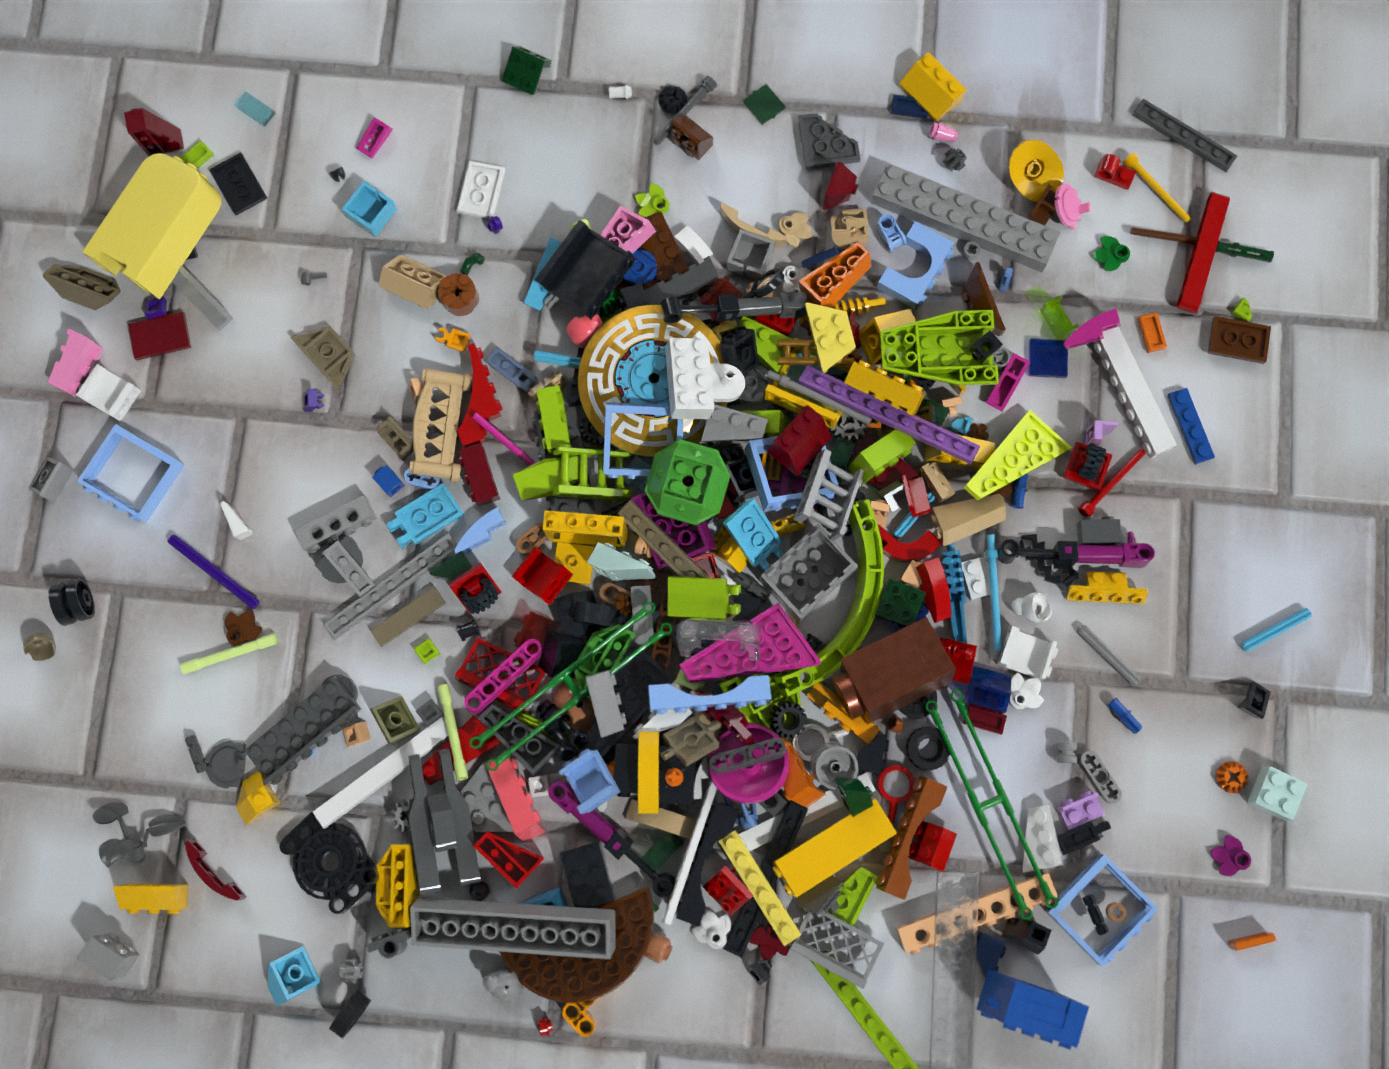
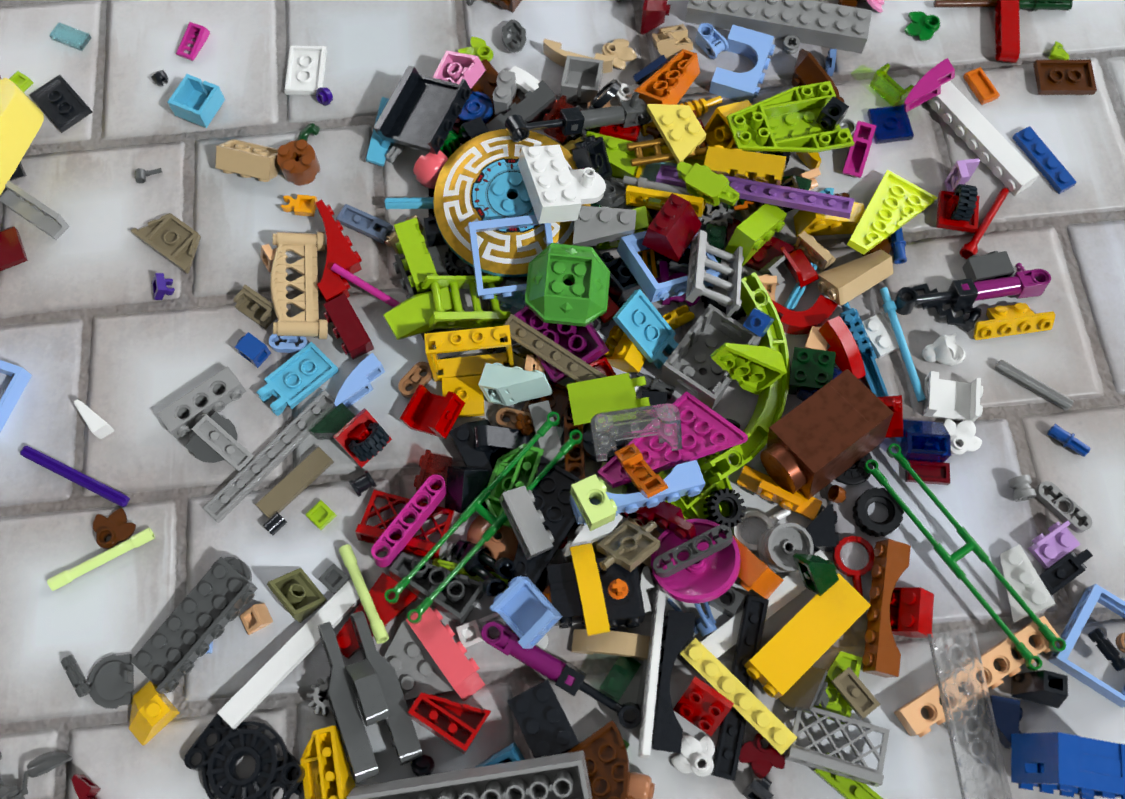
camera: 15 degrees left, 10 degrees down
(385, 651) = (275, 523): none -> black hinge
(664, 712) = (594, 515): none -> yellowish green brick
(670, 258) = (504, 92): none -> light grey brick
(693, 191) = (513, 36): none -> dark grey arm
(715, 676) = (640, 472): none -> orange slope
(841, 594) = (750, 365): none -> lime wedge
(843, 402) = (706, 184): none -> lime hinge
(858, 551) = (758, 322): none -> blue brick
(862, 906) = (855, 693): none -> dark tan plate

